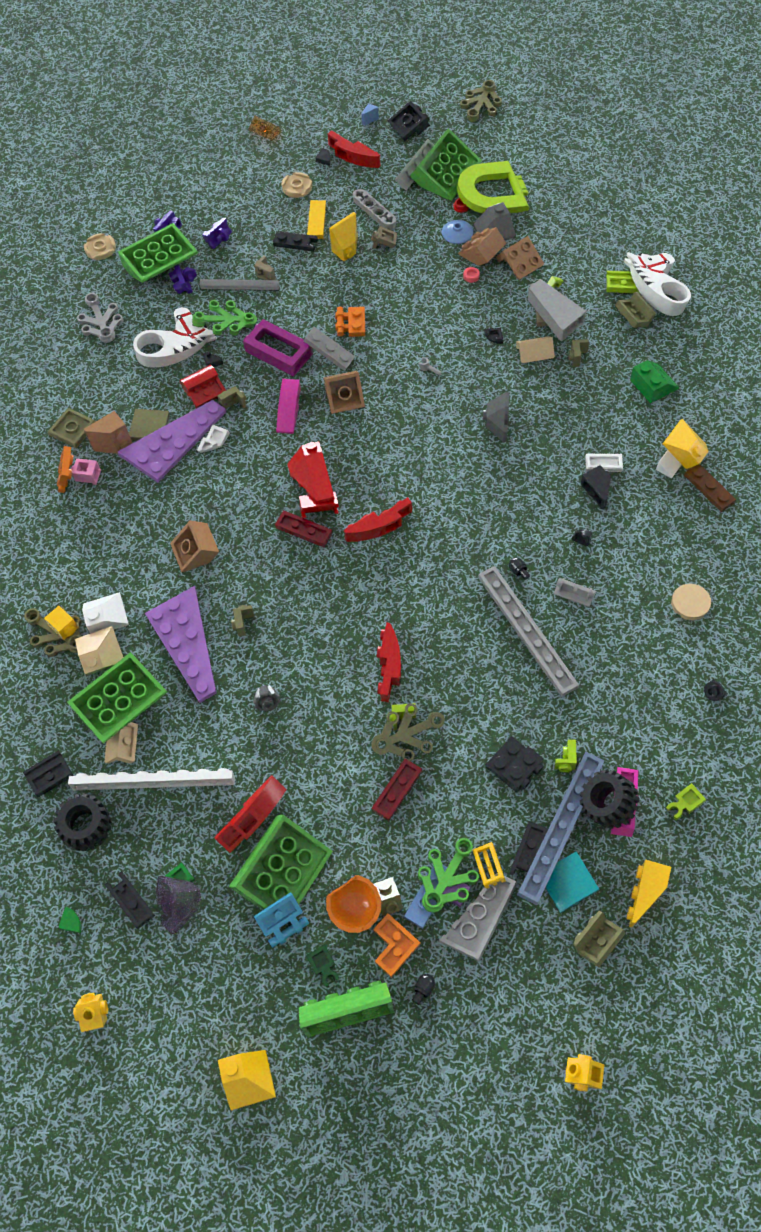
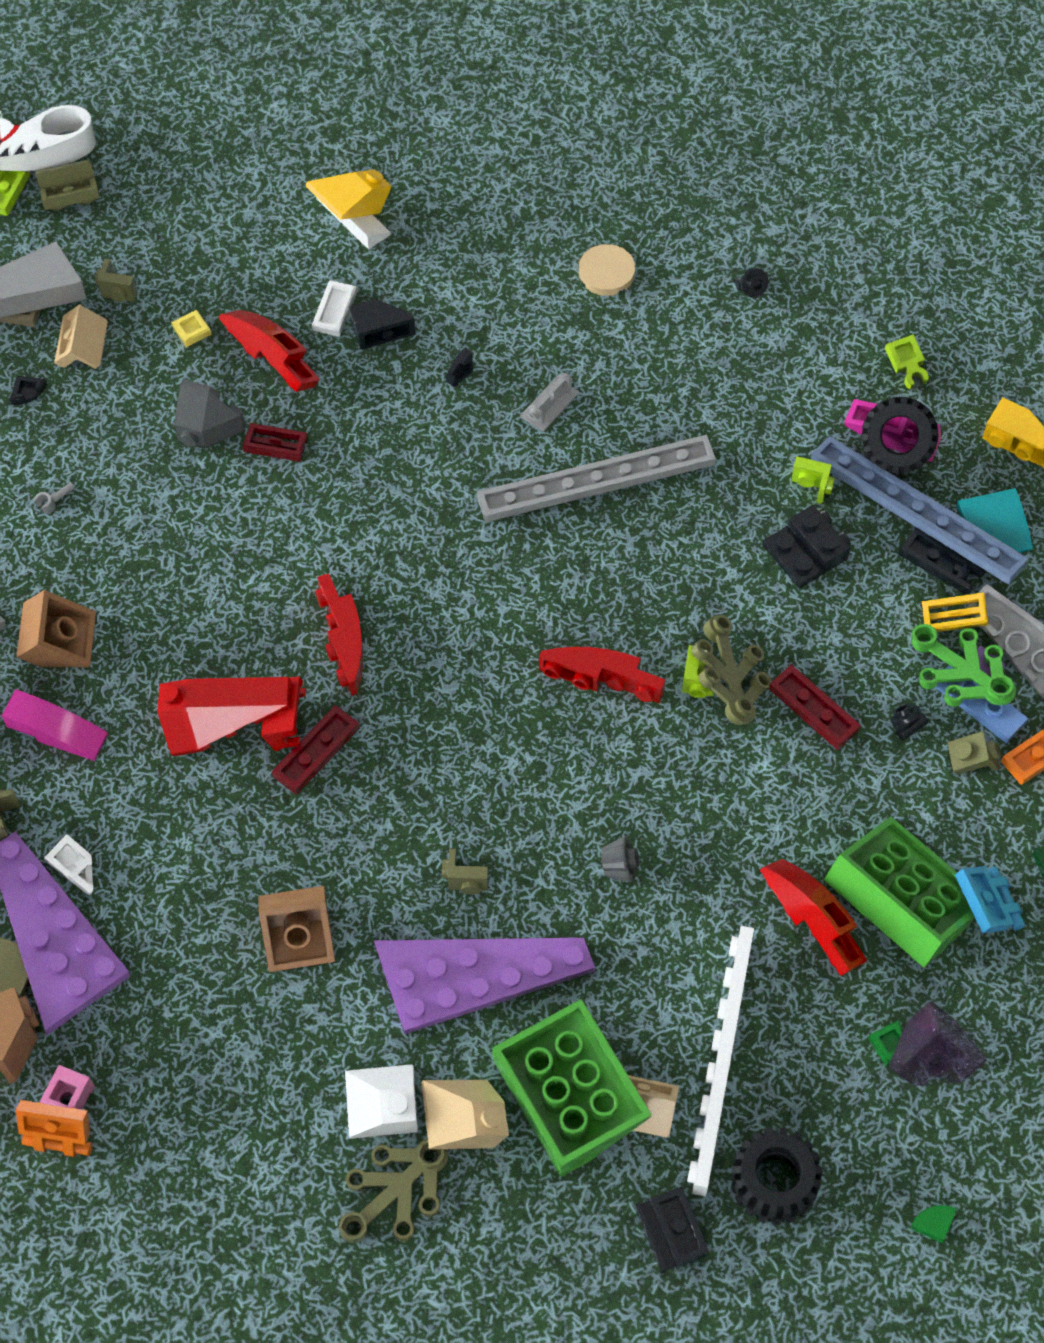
camera: 80 degrees left, 0 degrees up
(61, 623) = (391, 1168): yellow brick -> none
(130, 901) = (919, 1120): black hinge -> none
(354, 905) = (988, 790): orange cylinder -> none
(402, 849) = (908, 720): none -> black plate
(500, 470) = (274, 446): none -> dark red tile
(519, 568) = (485, 463): black cylinder -> none
(560, 436) = (268, 340): none -> red slope
(563, 397) = (191, 328): none -> light yellow tile
(652, 381) = (212, 206): green slope -> none
(710, 487) = (426, 192): reddish brown plate -> none

